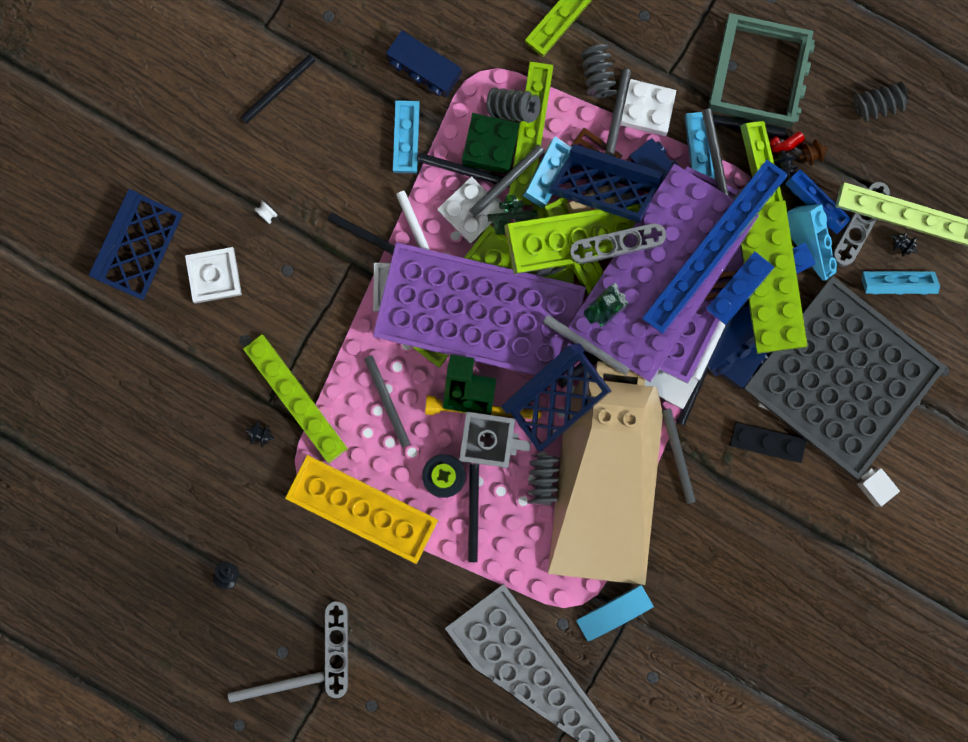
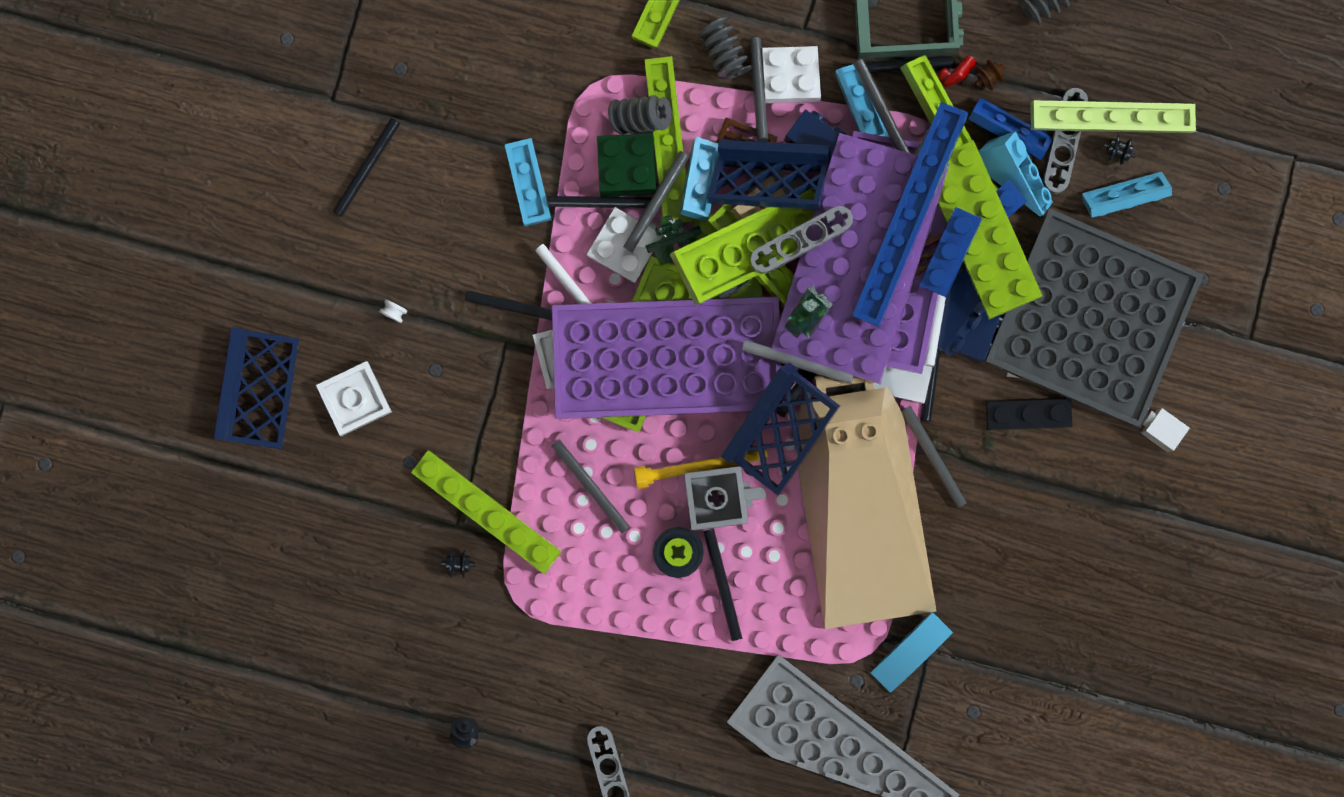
camera: 20 degrees left, 0 degrees up
(362, 509) = (596, 615): yellow plate -> none
(423, 64) = (524, 95): dark blue brick -> none
(467, 391) = (676, 449): dark green brick -> none
(544, 479) = (791, 525): dark grey piece -> none
(785, 163) = (963, 97): black wheel -> none

